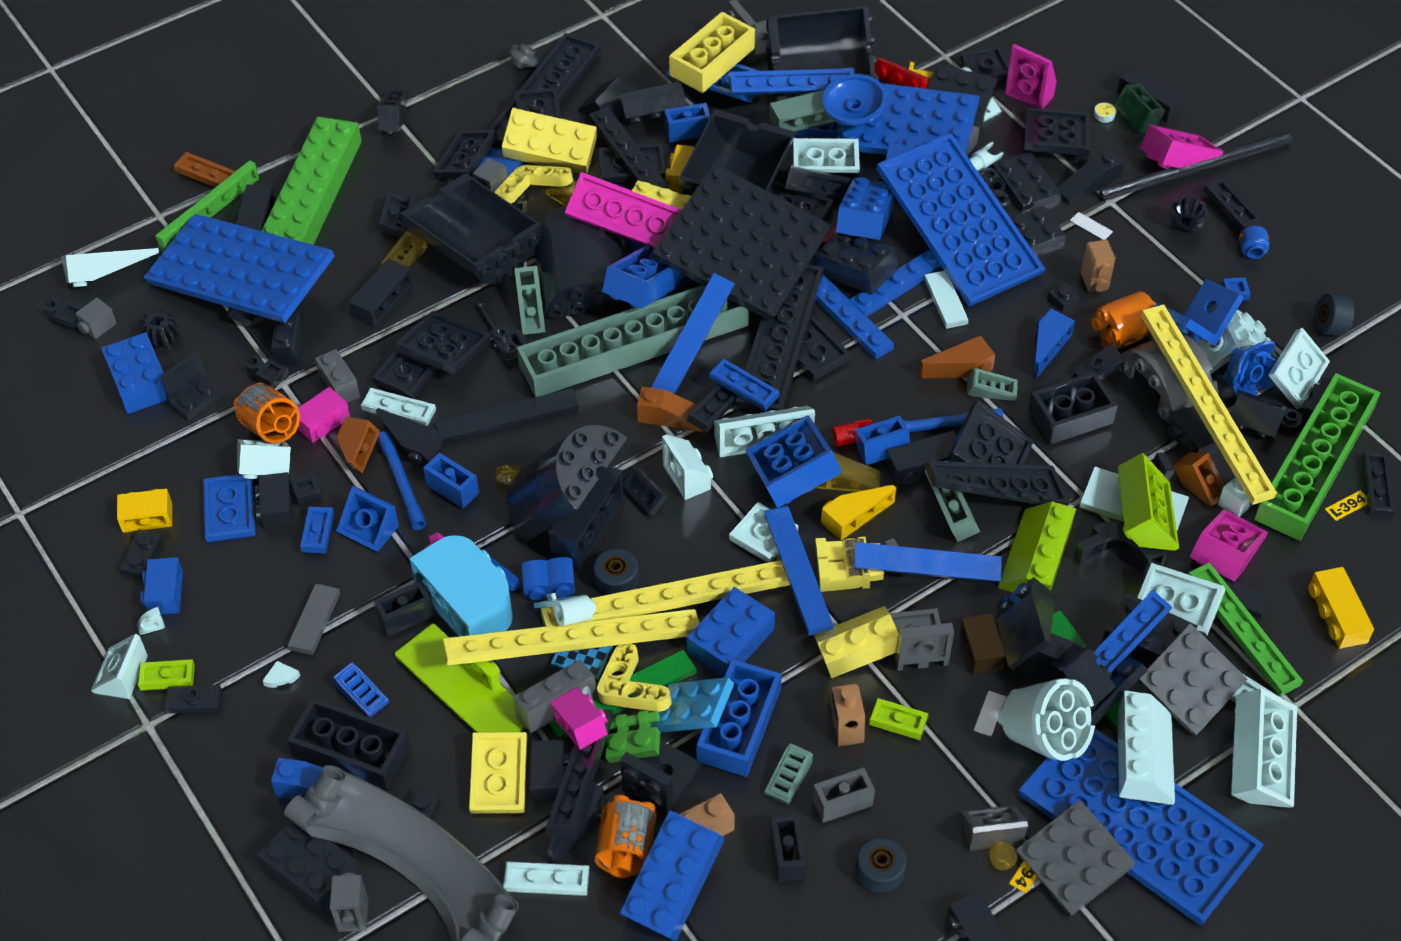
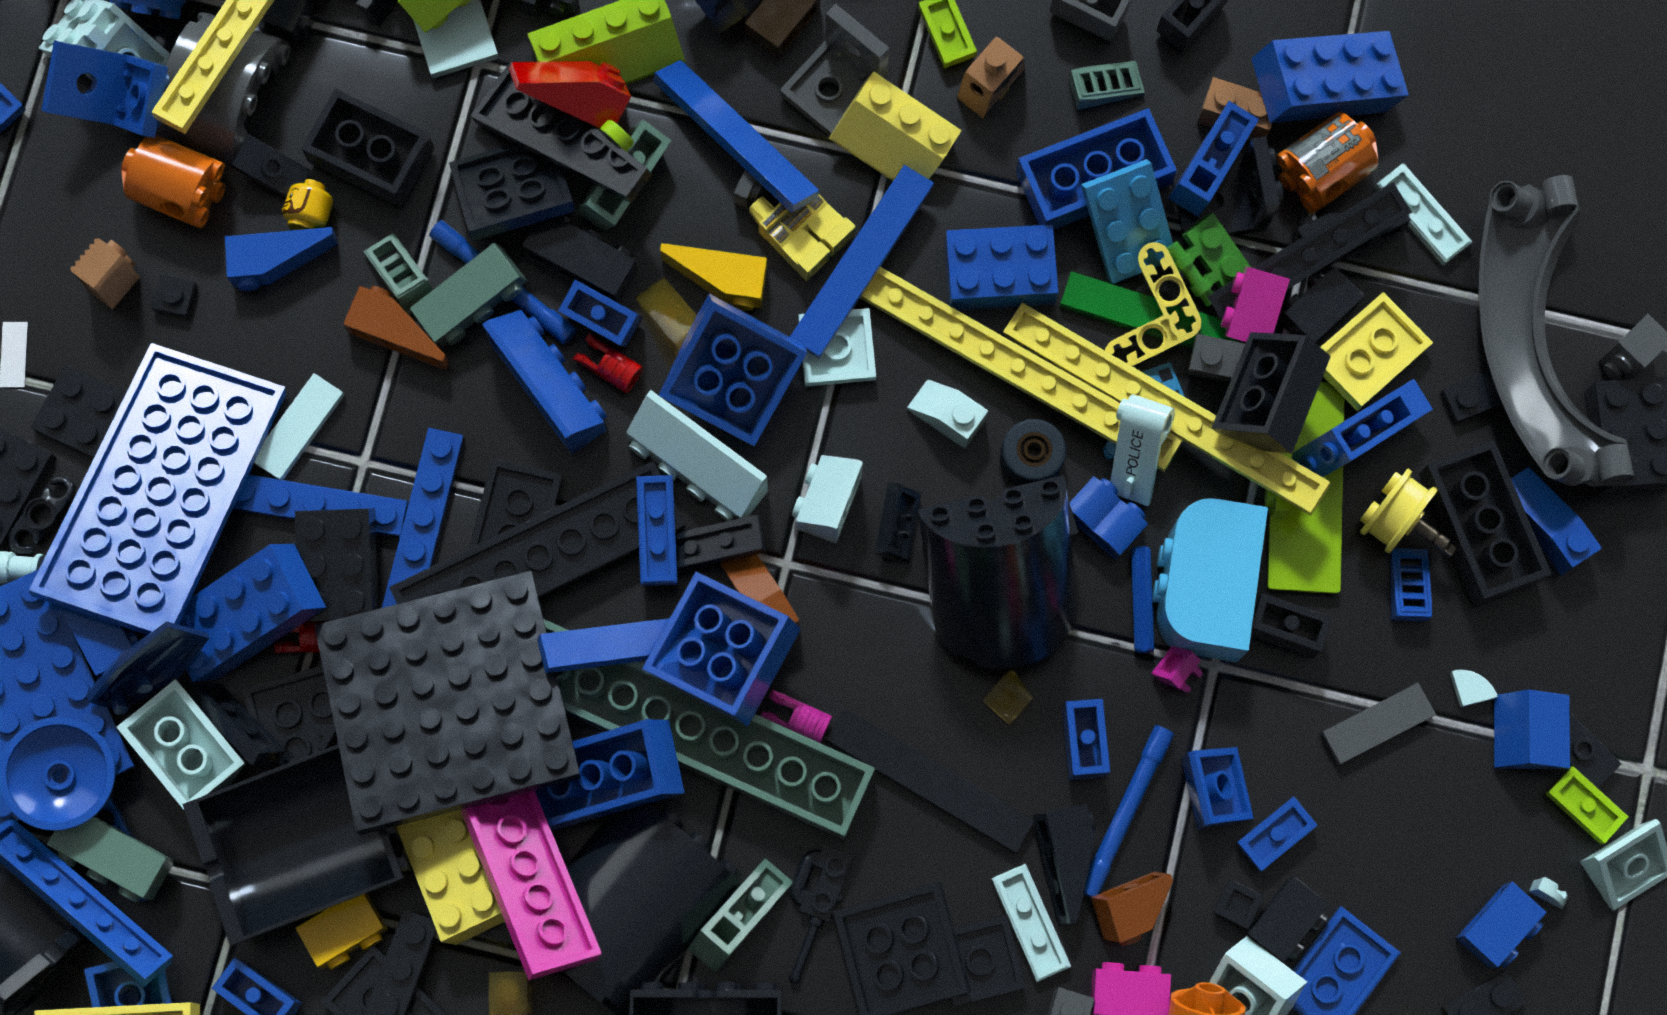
camera: 135 degrees left, 25 degrees up
(226, 678) = (1532, 730): none -> blue slope
(398, 701) = (1402, 513): none -> light yellow wheel
(459, 720) = (1363, 430): none -> blue slope
(522, 668) = (1271, 391): none -> black slope
(594, 384) = (804, 719): none -> dark pink hinge
(654, 353) = (722, 648): none -> blue slope
(676, 553) = (949, 412): none -> light aqua slope
(684, 770) = (1213, 159): none -> blue slope
(870, 392) = (545, 379): none -> blue slope
(874, 154) = (147, 667): none -> dark blue piece
(946, 396) = (469, 295): none -> sand green brick
(971, 492) = (617, 135): none -> lime tile
(1022, 497) = (575, 87): none -> red slope
(1062, 366) = (307, 205): none -> yellow head

